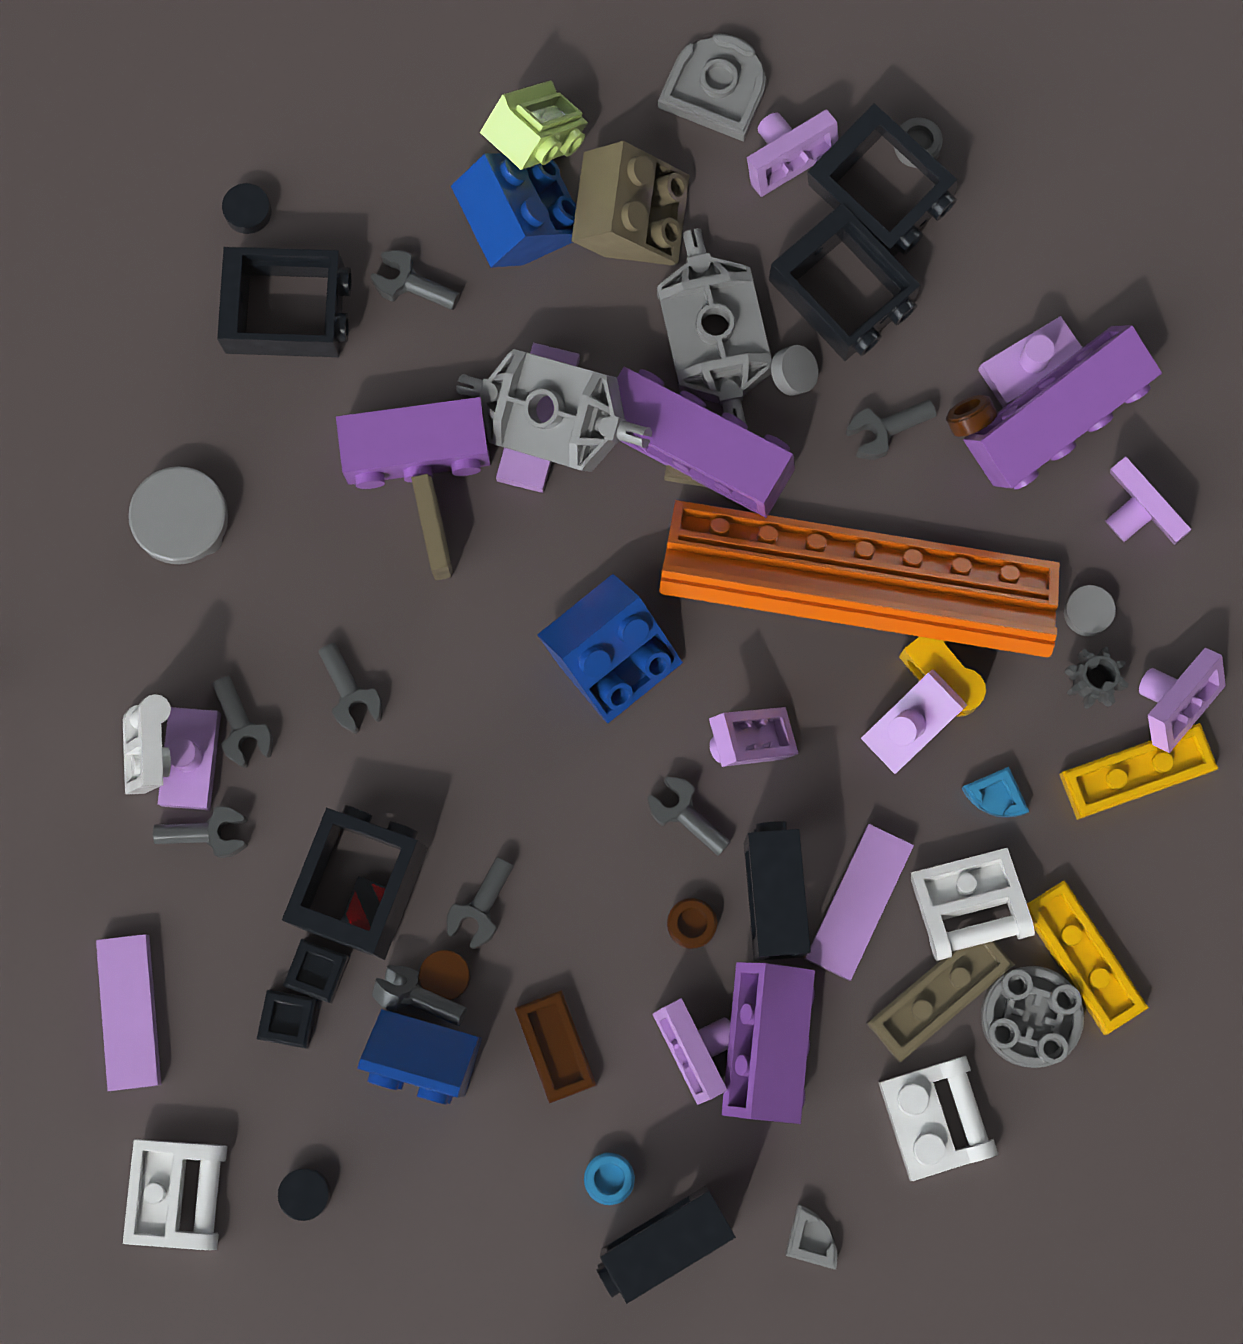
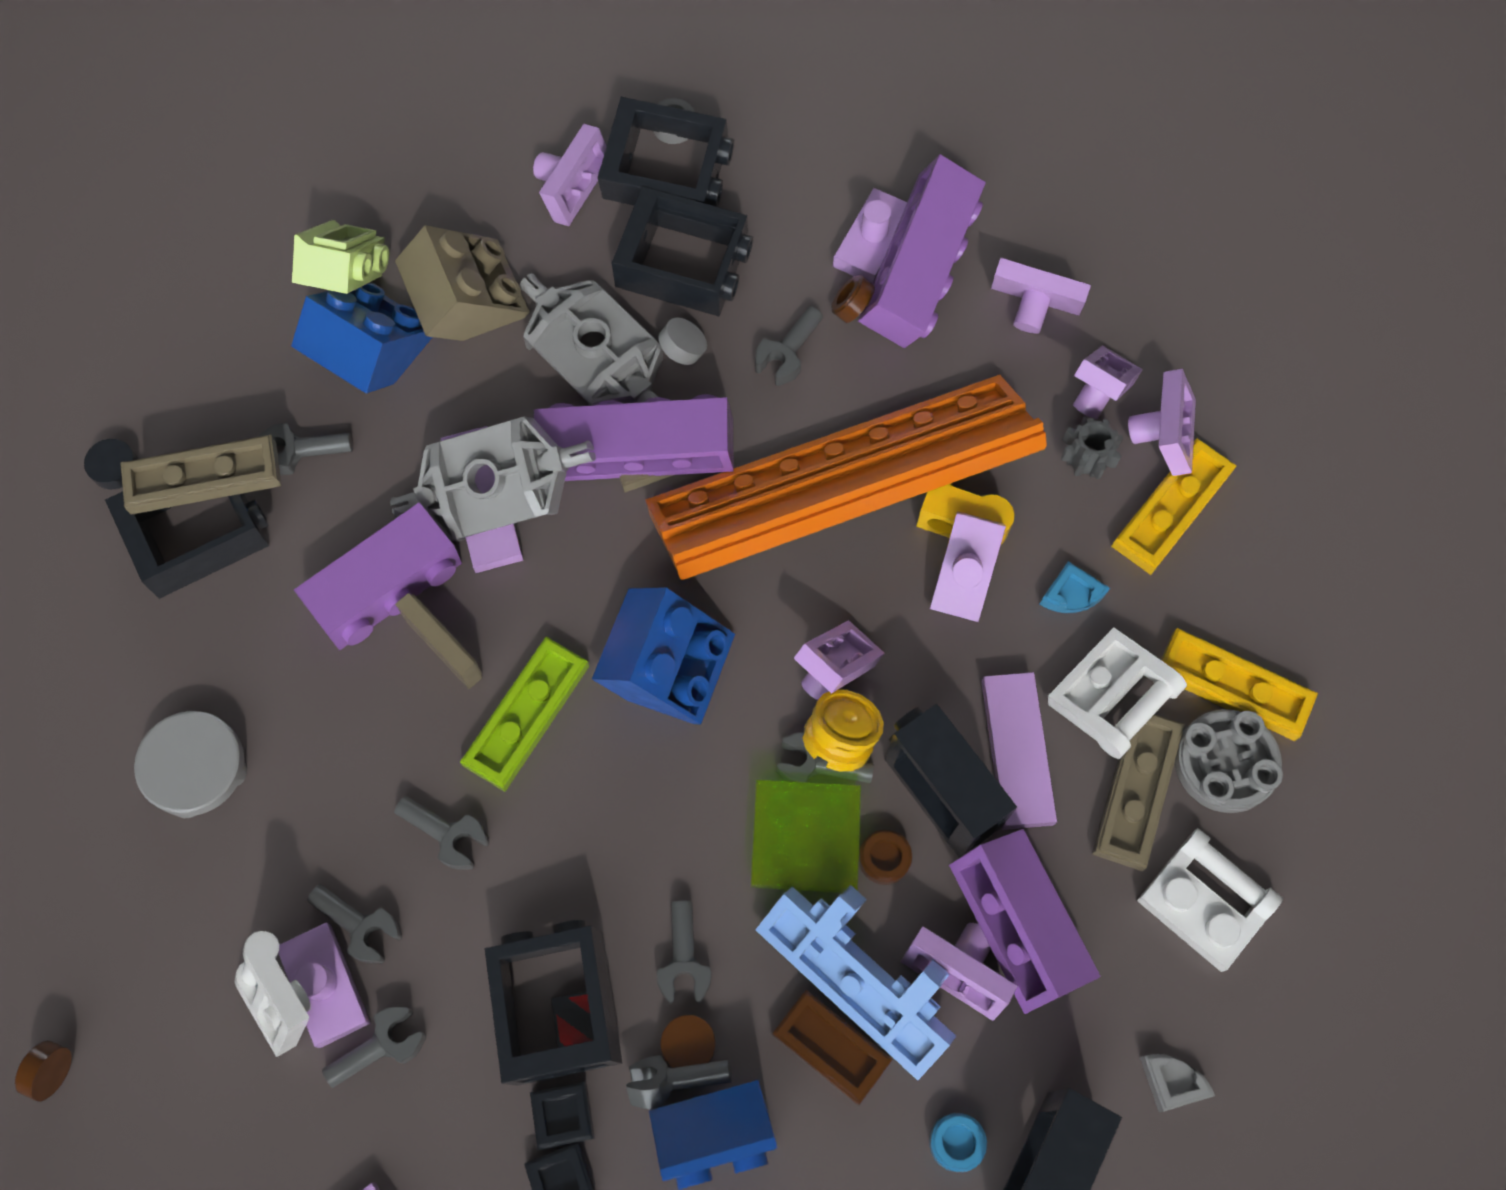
camera: 35 degrees left, 10 degrees down
(312, 270) = (200, 474): none -> dark tan tile
(469, 629) = (525, 714): none -> lime tile
(593, 970) = (887, 1009): none -> light blue hinge
(636, 868) = (806, 836): none -> clear neon green tile
(716, 85) = (478, 160): light grey tile -> none
(719, 800) = (843, 730): none -> yellow wheel
(1089, 610) = (1049, 400): light grey tile -> none
(1149, 622) = (1105, 378): none -> lavender tile

